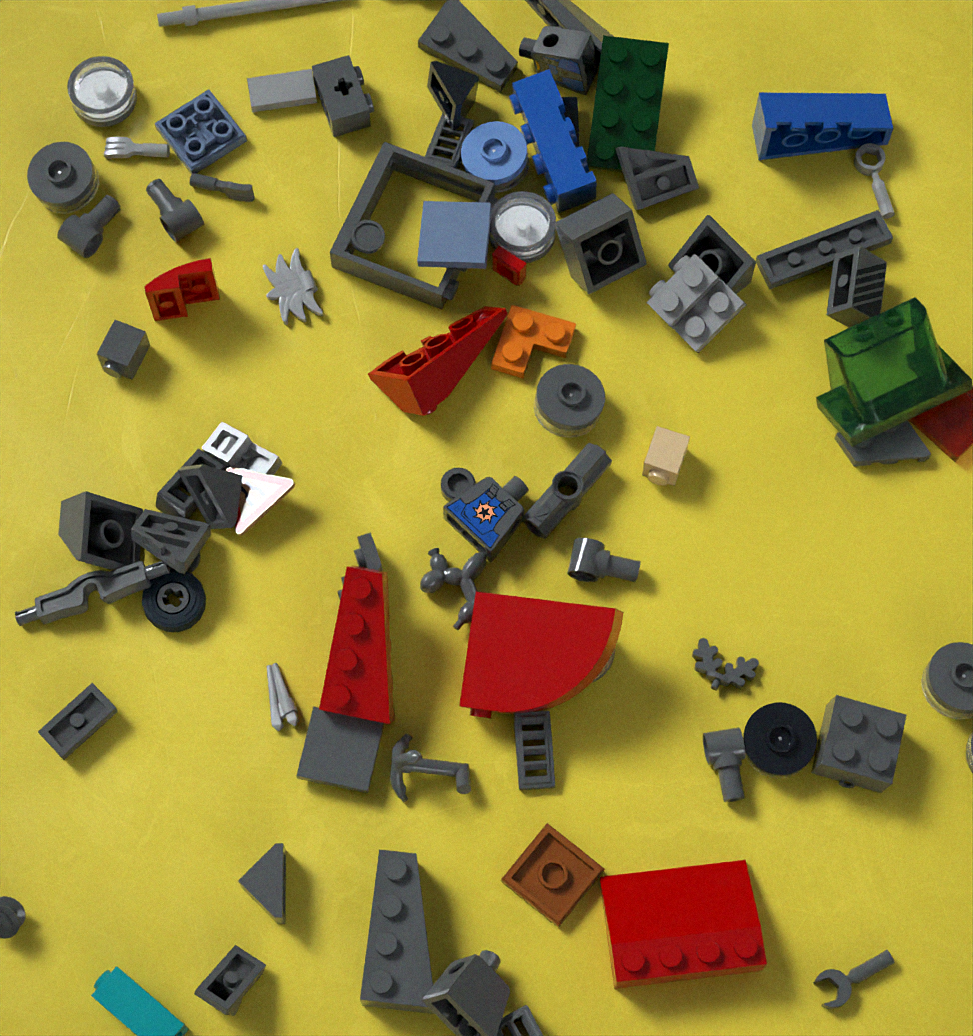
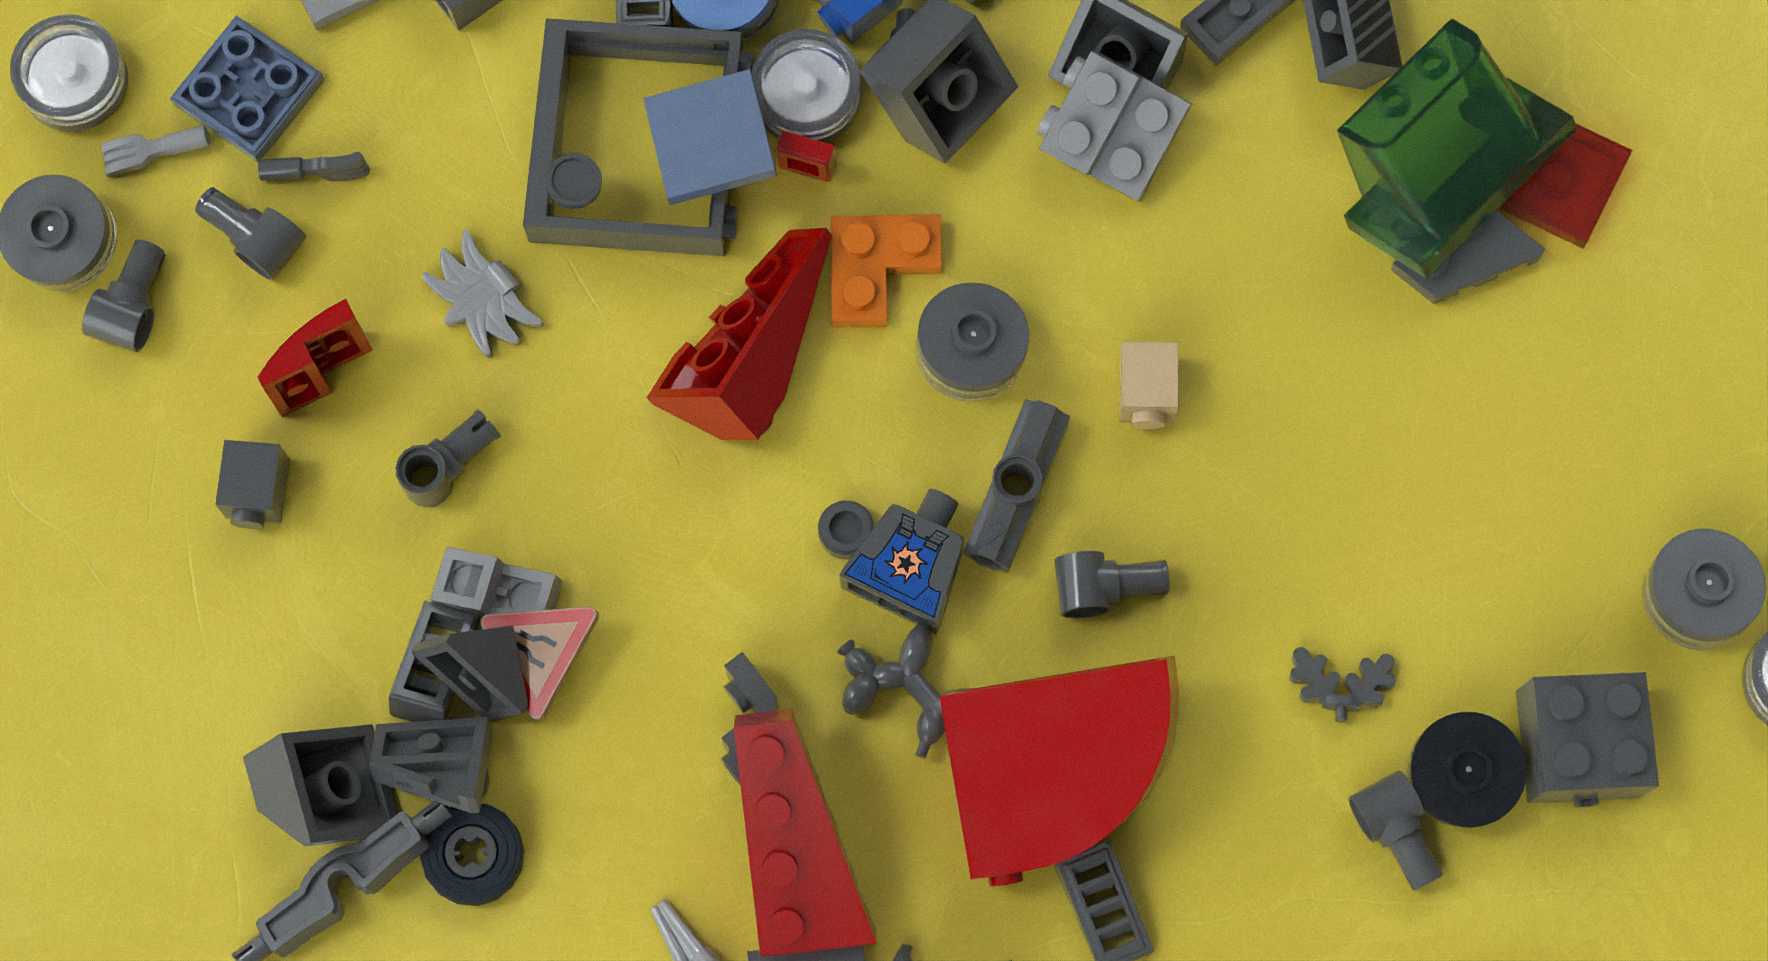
camera: 15 degrees left, 5 degrees up
(239, 370) = (447, 456): none -> dark grey pin

